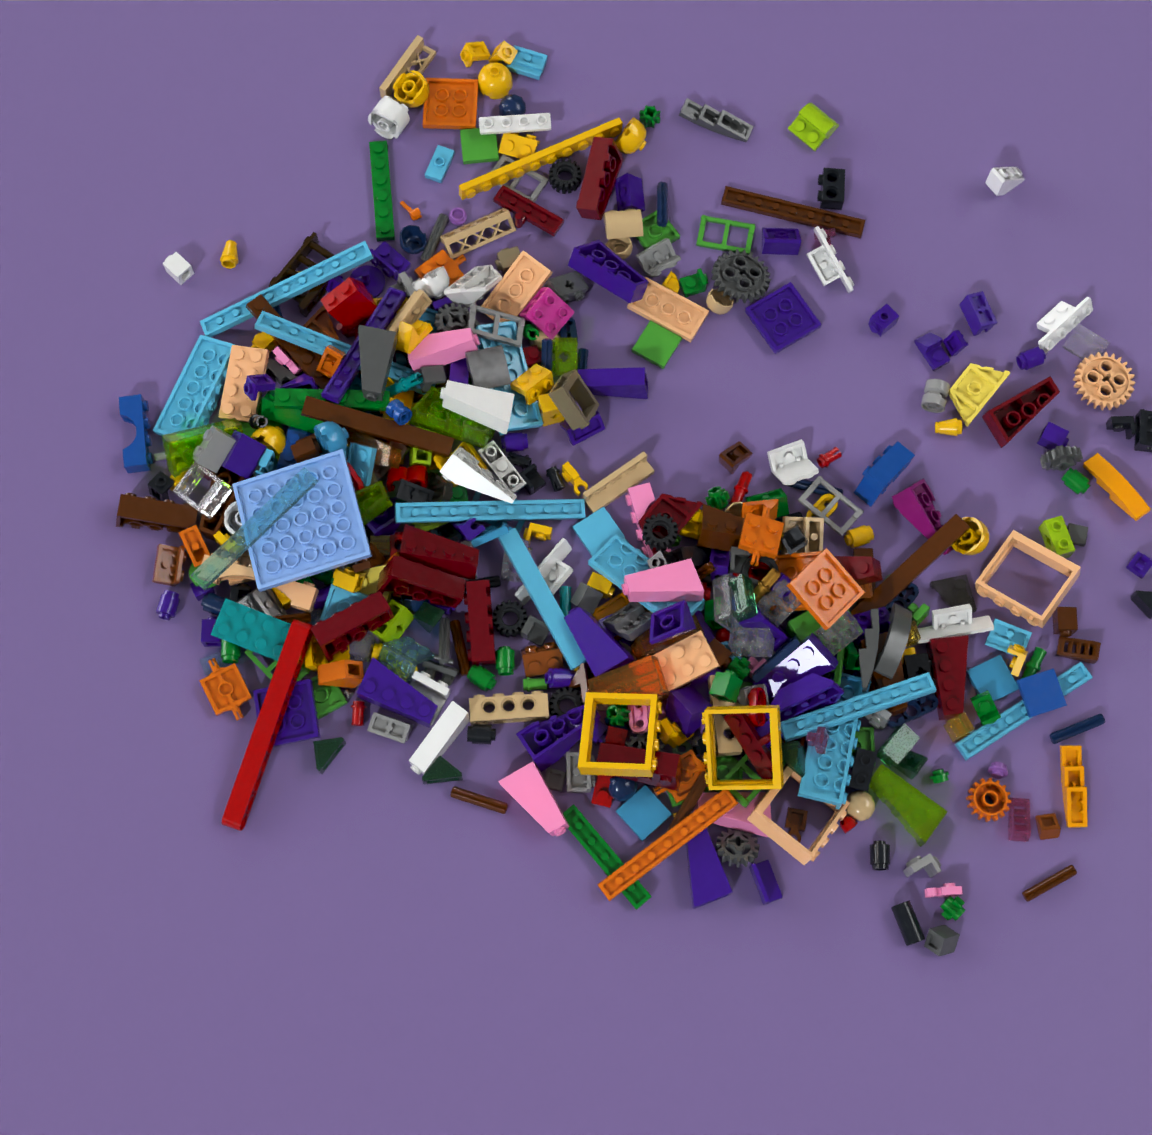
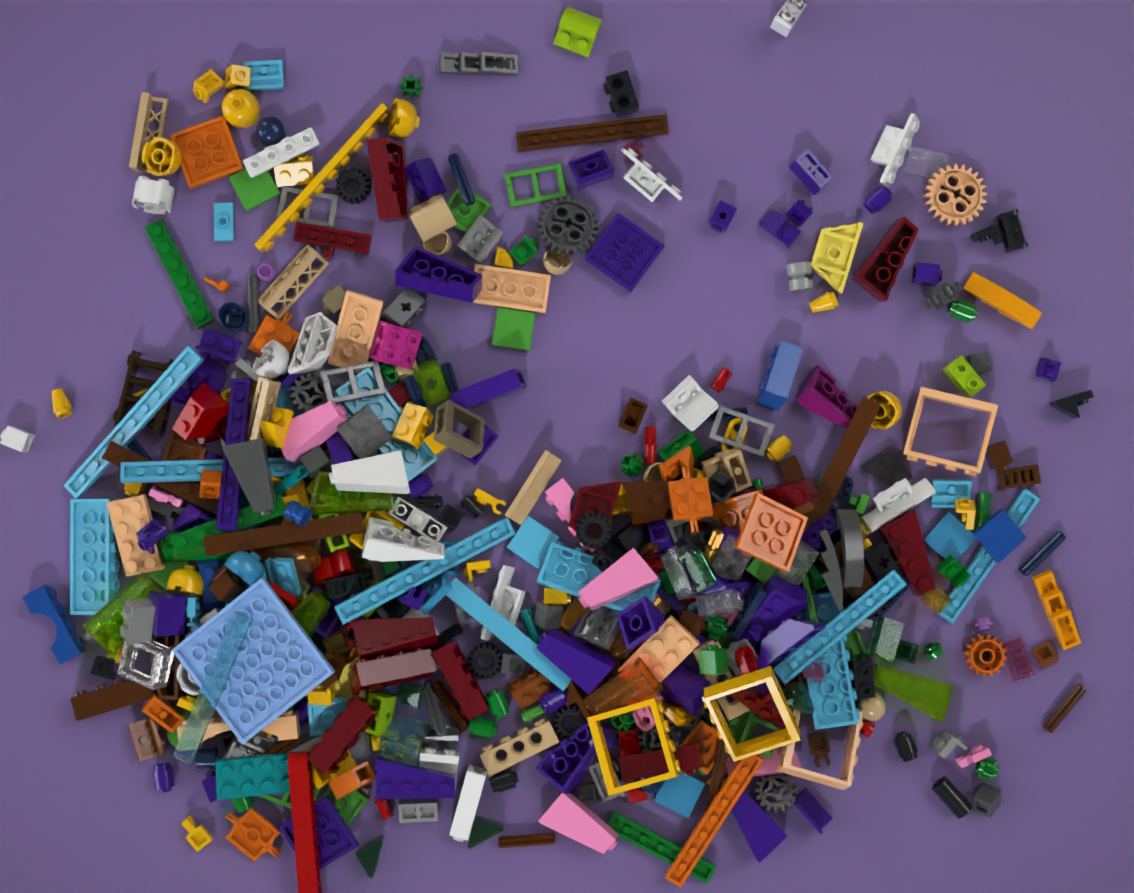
camera: 20 degrees left, 15 degrees up
(174, 670) = (197, 836): none -> yellow plate
(253, 421) = (165, 569): black pin -> none

